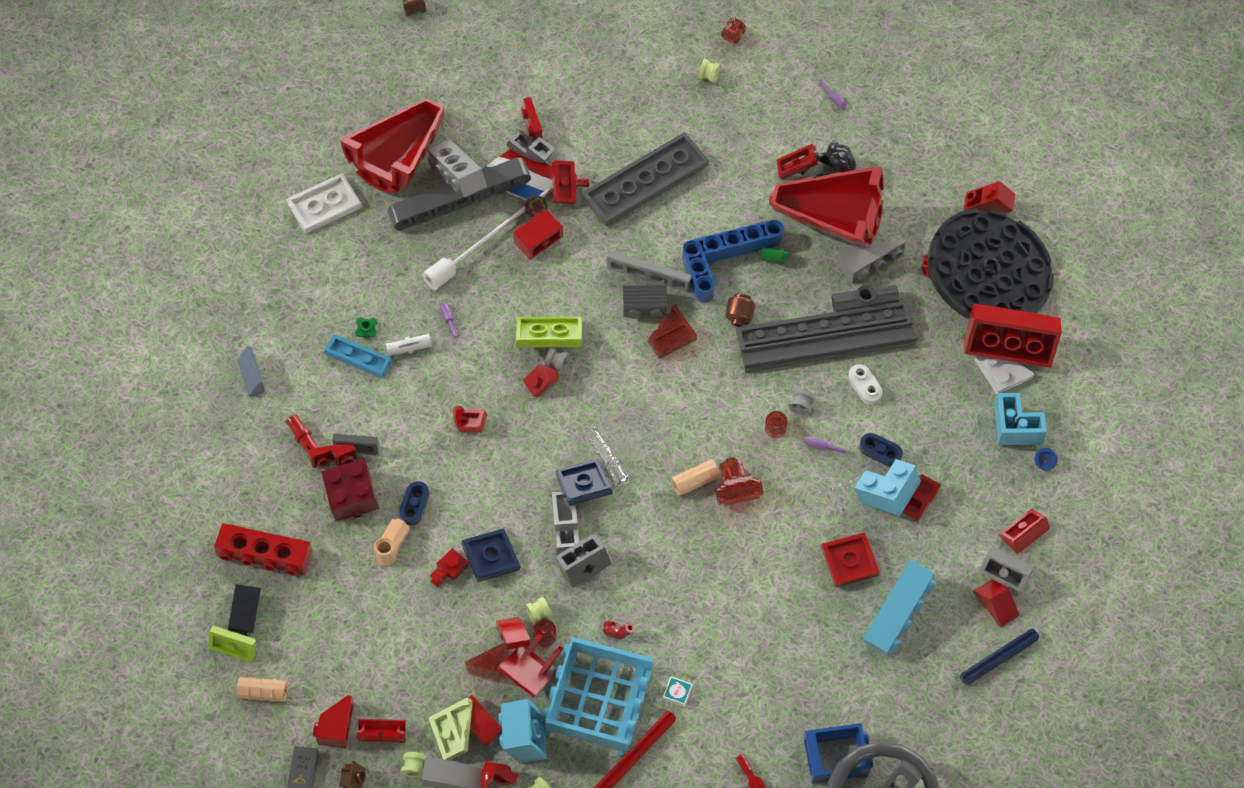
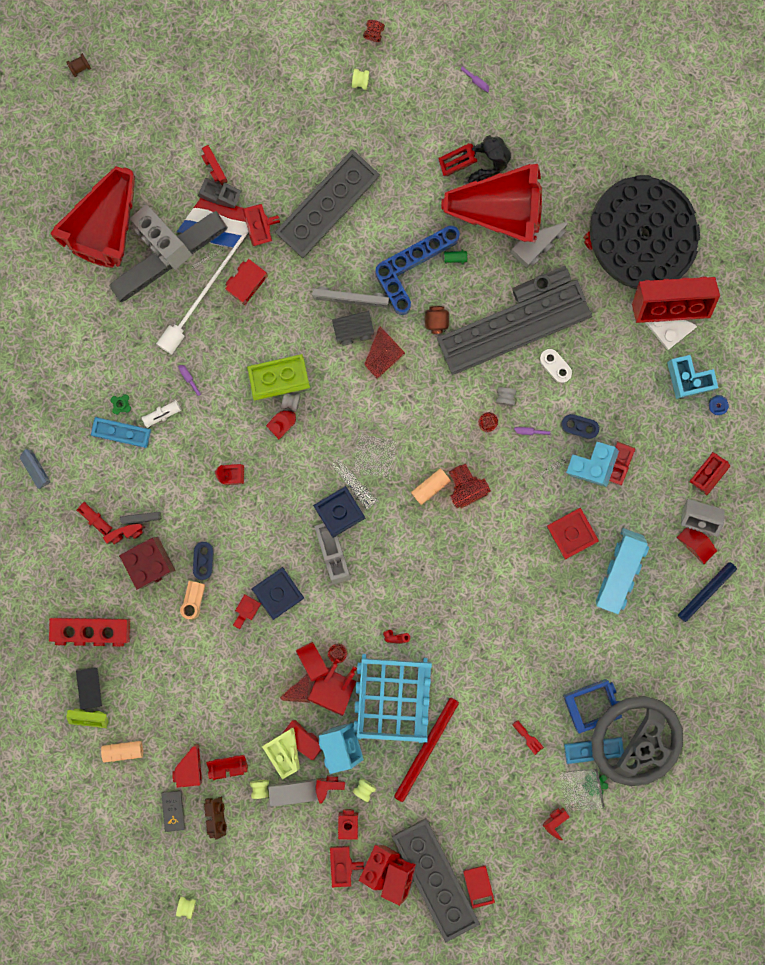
camera: 10 degrees left, 25 degrees up
(324, 203) = (52, 289): white tile -> none
(535, 205) = (238, 253): tile -> none
(538, 610) = (328, 635): yellowish green wheel -> none
(583, 560) = (355, 585): dark grey brick -> none
(677, 691) = (455, 678): tile -> none
(992, 196) = (632, 161): red slope -> none

